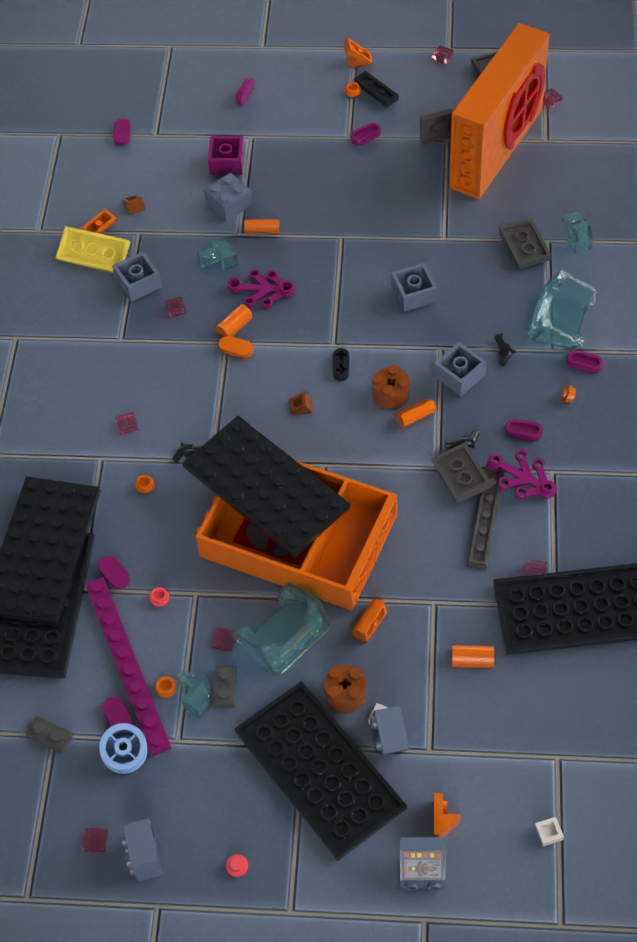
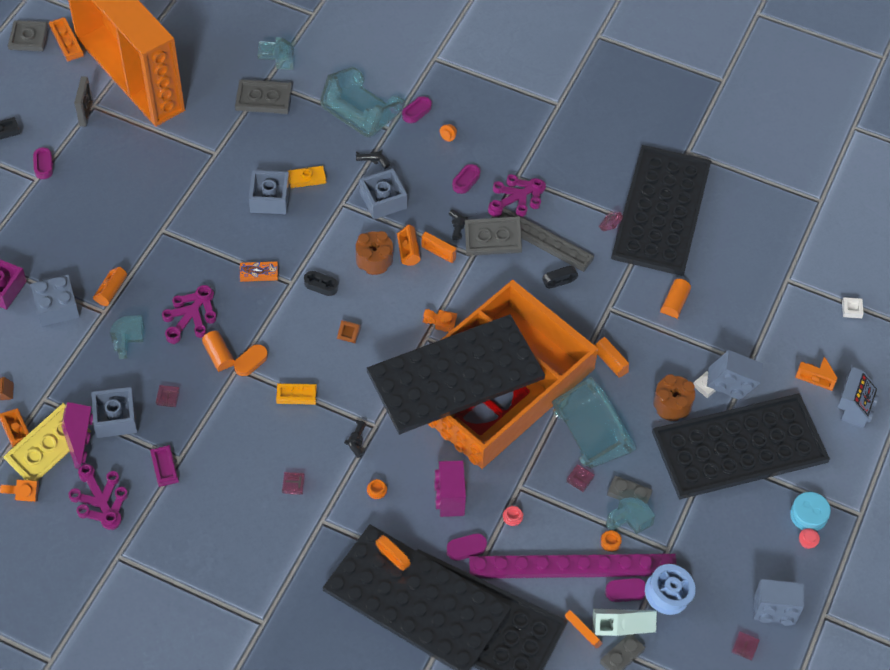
camera: 75 degrees left, 0 degrees up
(45, 317) = (100, 499): none -> magenta plant
(47, 254) = (24, 490): none -> orange plate
(60, 691) = (583, 629): none -> orange tile
(68, 509) = (392, 552): none -> orange tile
(75, 717) = (623, 622): none -> light aqua slope
(105, 258) = (75, 426): none -> magenta slope
(108, 331) = (164, 466): none -> magenta tile
(159, 534) = (450, 488): none -> magenta brick
(215, 390) = (296, 393): none -> light orange plate
(267, 857) = (810, 511): none -> medium azure head
(330, 316) = (258, 271): none -> tile
(346, 468) = (443, 320): none -> orange plate
(425, 435) = (438, 247): none -> orange tile
(444, 545) = (560, 277): none -> black beam
(453, 310) = (307, 177): none -> light orange plate

